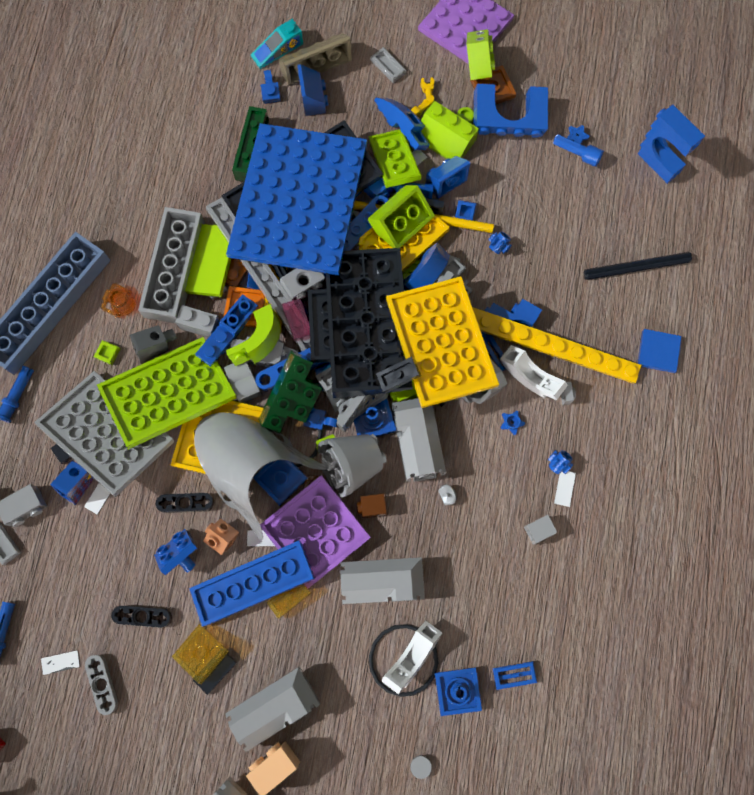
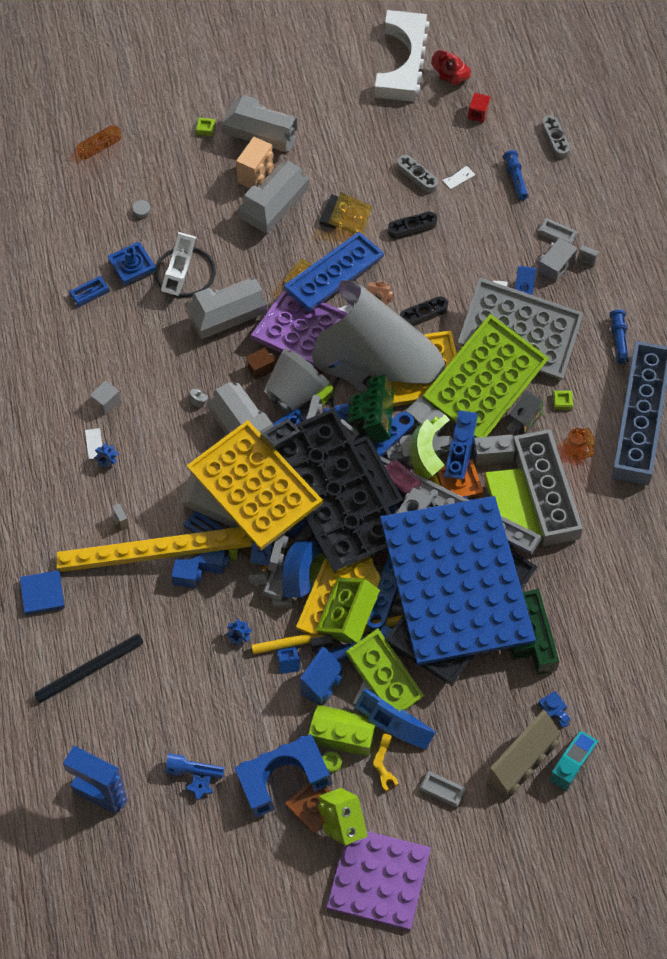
camera: 155 degrees right, 15 degrees down
(176, 553) = (408, 269): blue plate -> none
(312, 91) = (506, 713): blue slope -> none
(512, 417) = (163, 474): blue plate -> none
(530, 375) = (160, 520): white arch -> none

